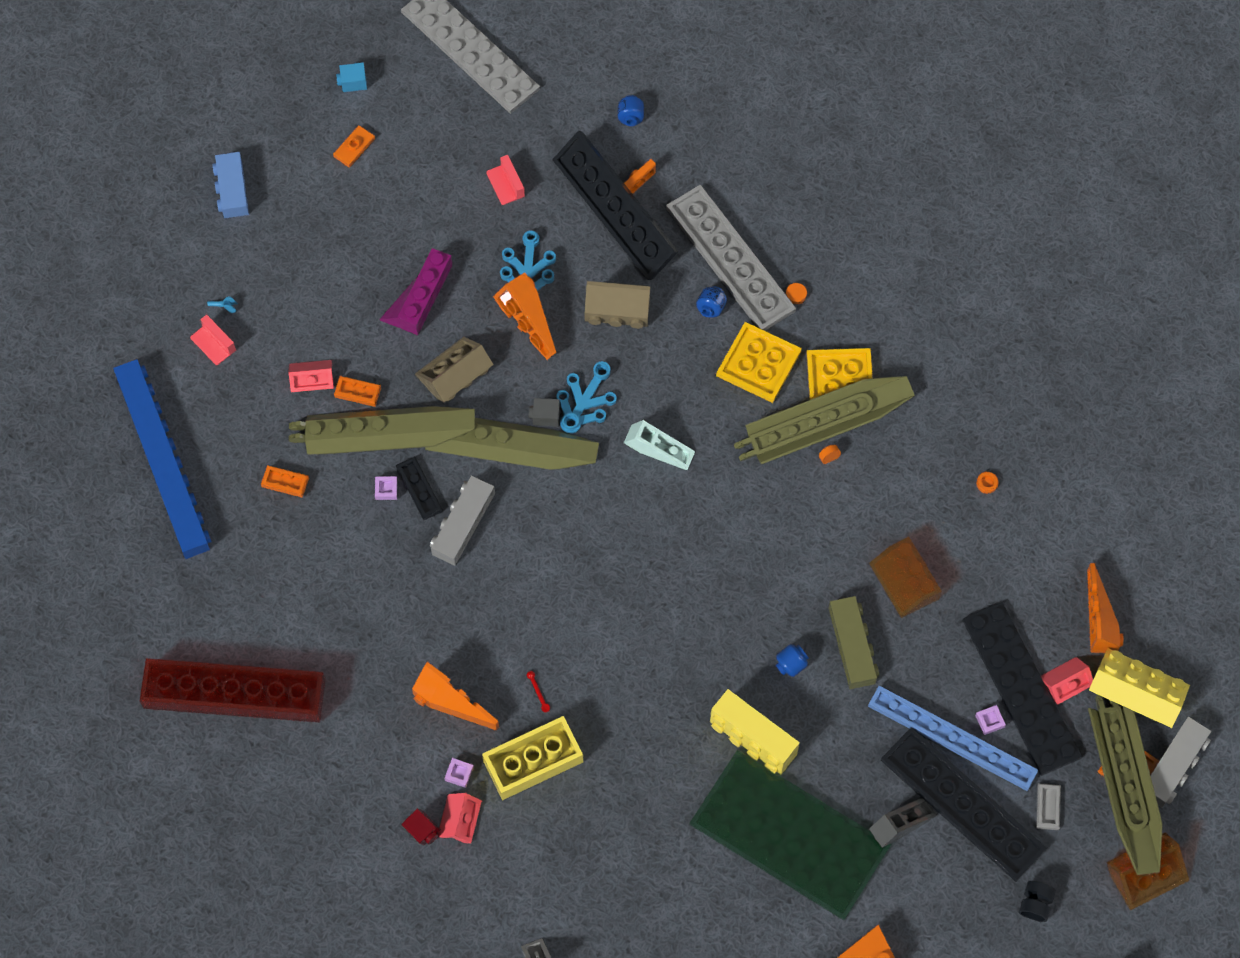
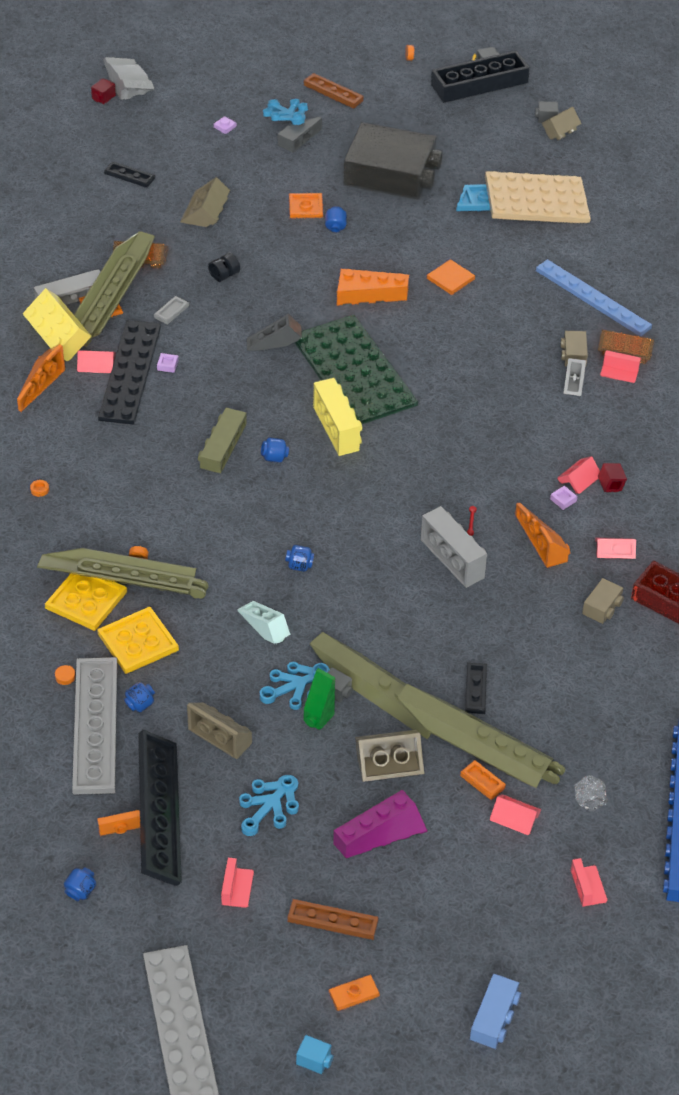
camera: 150 degrees left, 20 degrees down
(226, 303) = (560, 909): dark azure hand -> none
(252, 423) = (590, 793): none -> clear brick
(284, 481) = (586, 743): orange plate -> none
(348, 653) = (603, 600): none -> dark tan brick
(373, 738) = (616, 548): none -> panel
(386, 488) = (503, 697): lavender plate -> none
(407, 193) = (333, 919): none -> dark orange plate
(462, 521) = (456, 644): light grey brick -> none
(521, 300) = (297, 761): orange wedge -> none
(528, 625) = (453, 546): none -> light grey brick
(532, 758) = (505, 475): light yellow brick -> none
(542, 375) = (320, 700): none -> green slope
(673, 535) = (299, 558): none -> blue head
(905, 577) = (152, 457): clear orange slope -> none
(953, 738) = (201, 365): medium blue plate -> none
(963, 804) = (226, 333): black plate -> none

